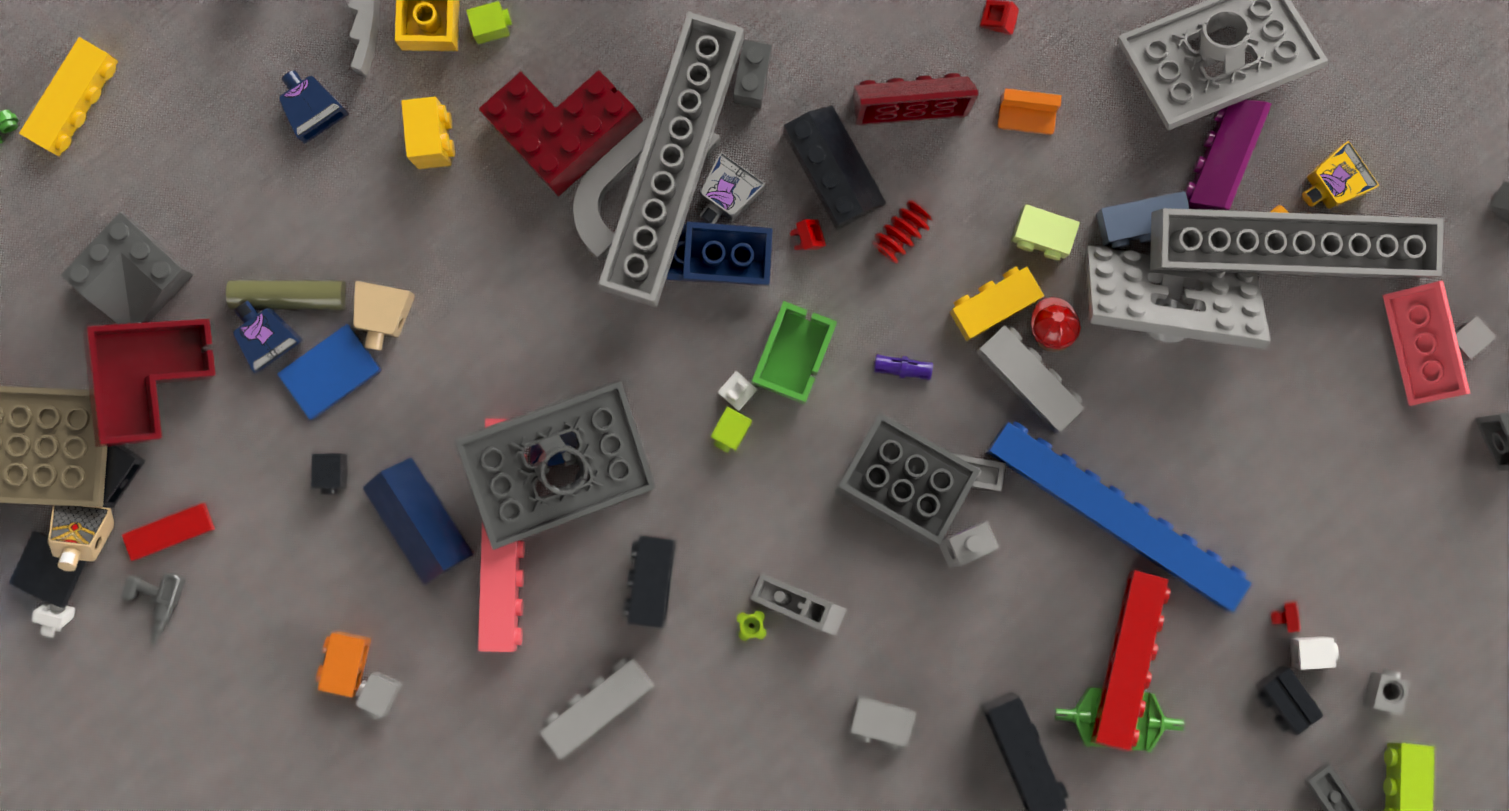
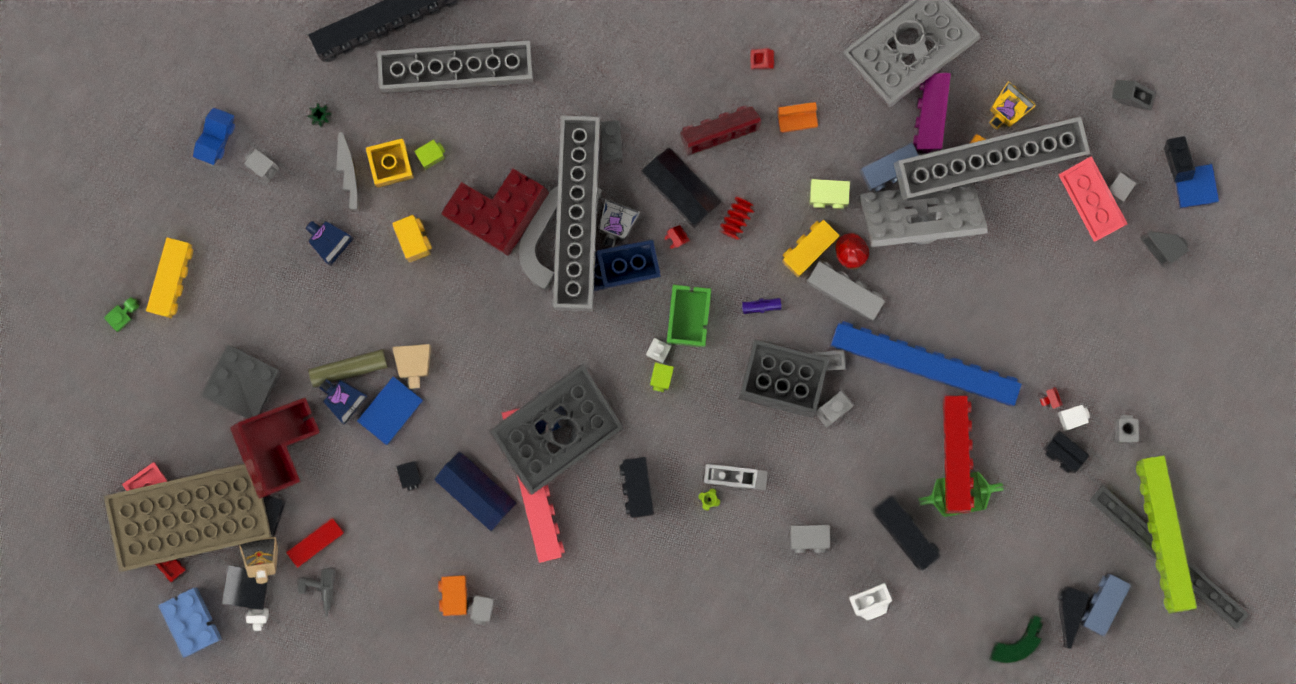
camera: 15 degrees left, 0 degrees up
(596, 708) = (624, 579): light grey brick -> none

